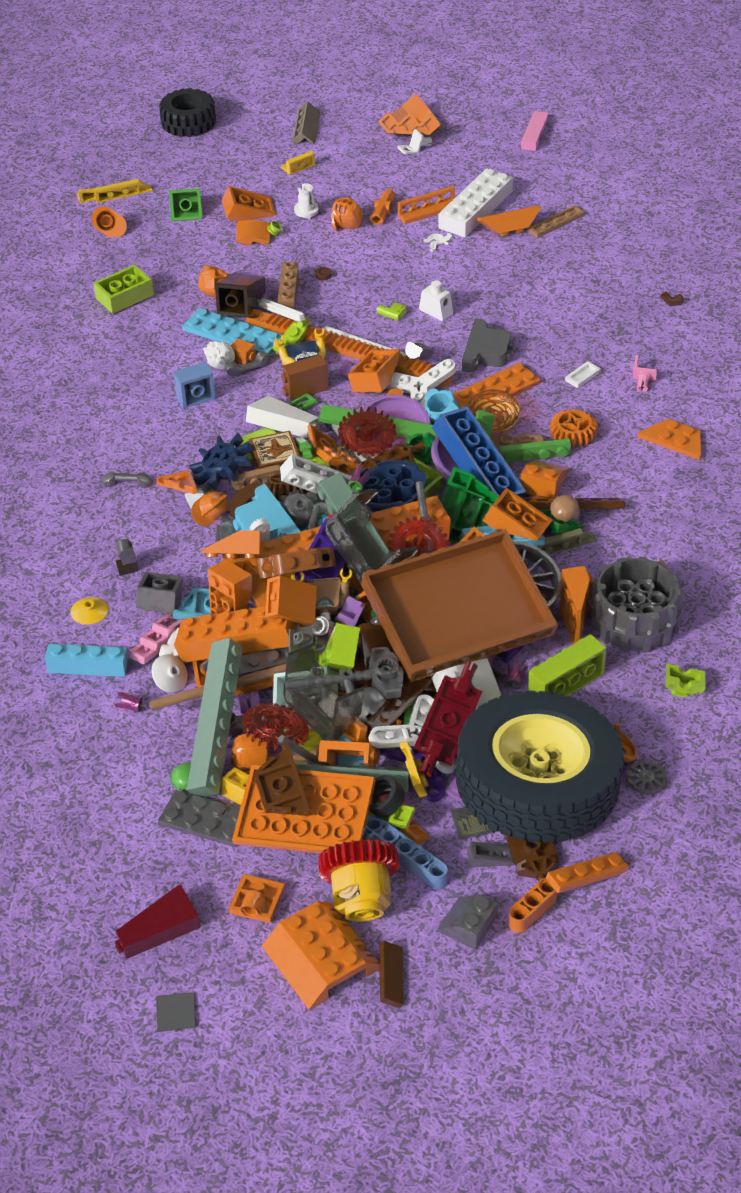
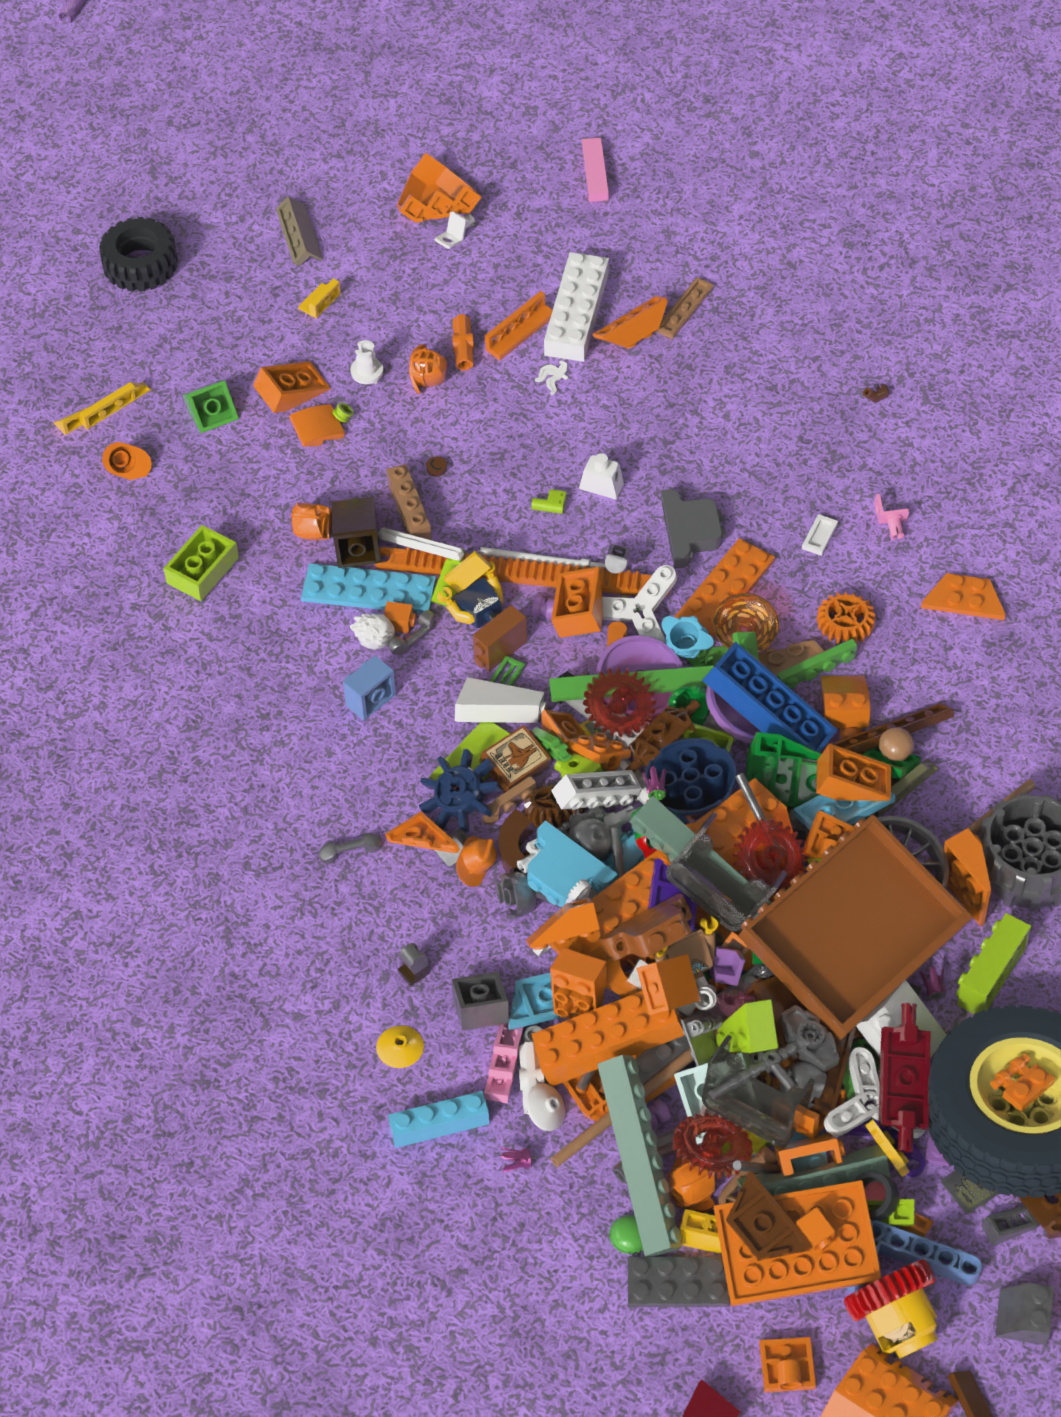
camera: 20 degrees left, 10 degrees up
(301, 330) = (467, 572): none -> yellow tile
(319, 800) = (816, 1229): none -> orange brick
(543, 752) = (1025, 1089): none -> orange plate

